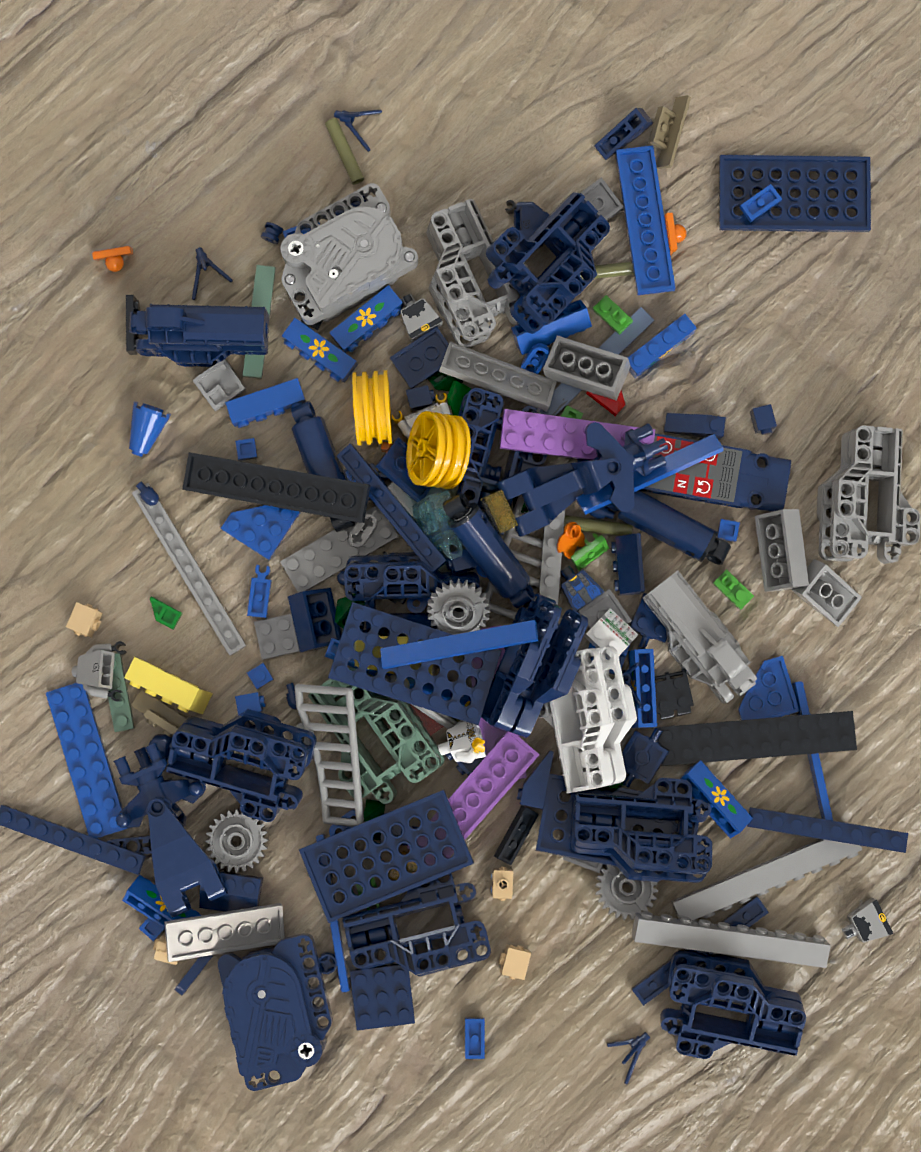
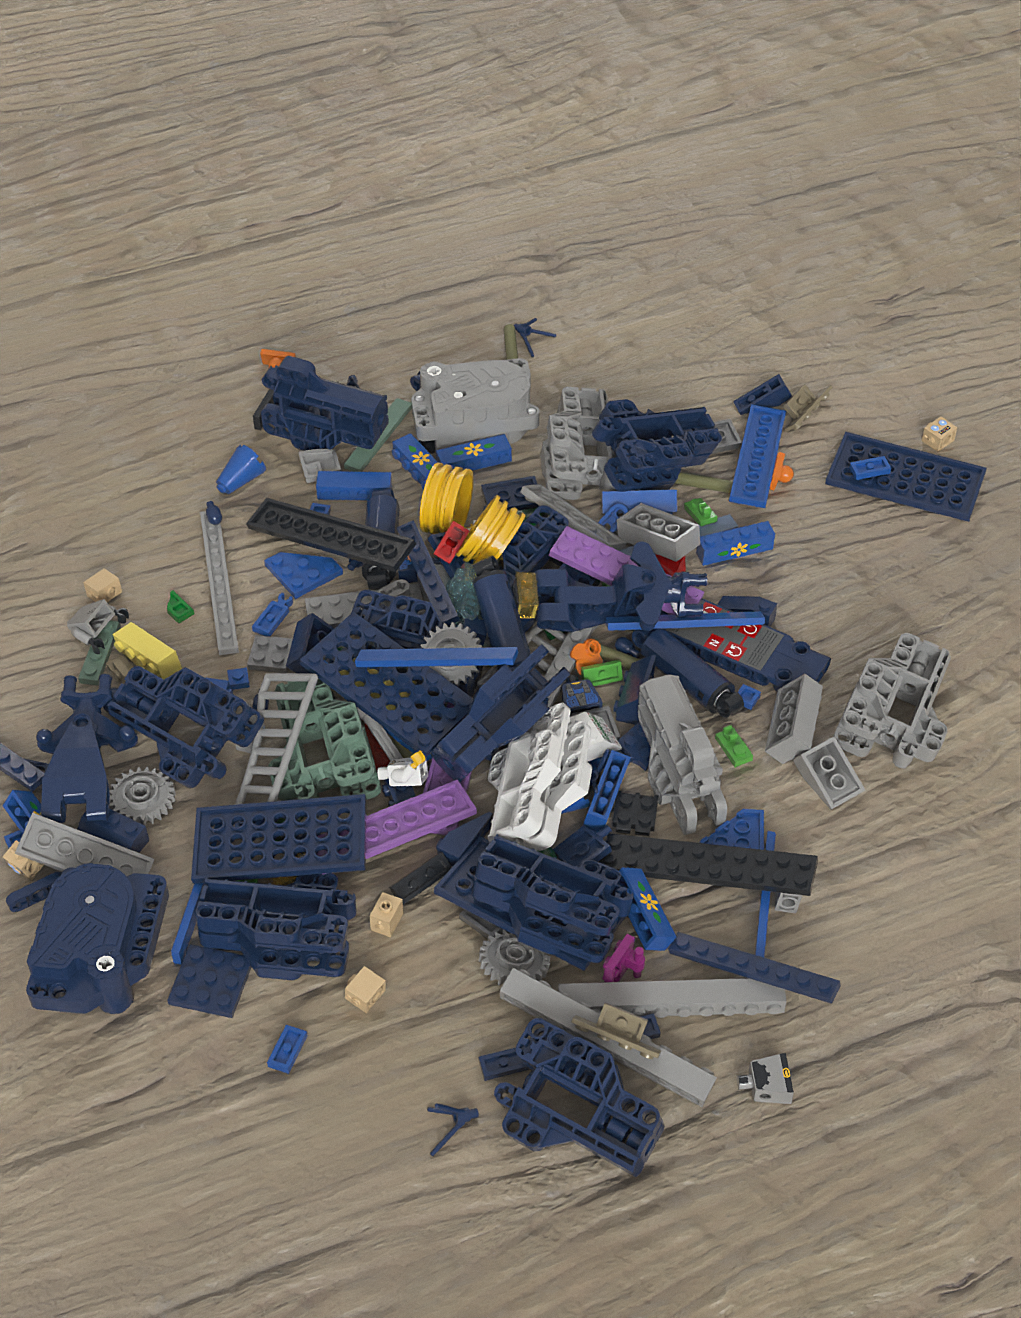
camera: 20 degrees right, 35 degrees down
(86, 759) = (39, 691): blue plate -> none
(328, 963) = (170, 927): dark blue wheel -> none
(402, 465) = (451, 542): none -> red arch
(418, 317) = (522, 464): torso -> none
(719, 856) = (622, 959): none -> magenta plate
(744, 943) = (621, 1027): none -> dark tan bracket
(763, 419) = (815, 622): dark blue brick -> none
(811, 123) = (939, 434): none -> tan head

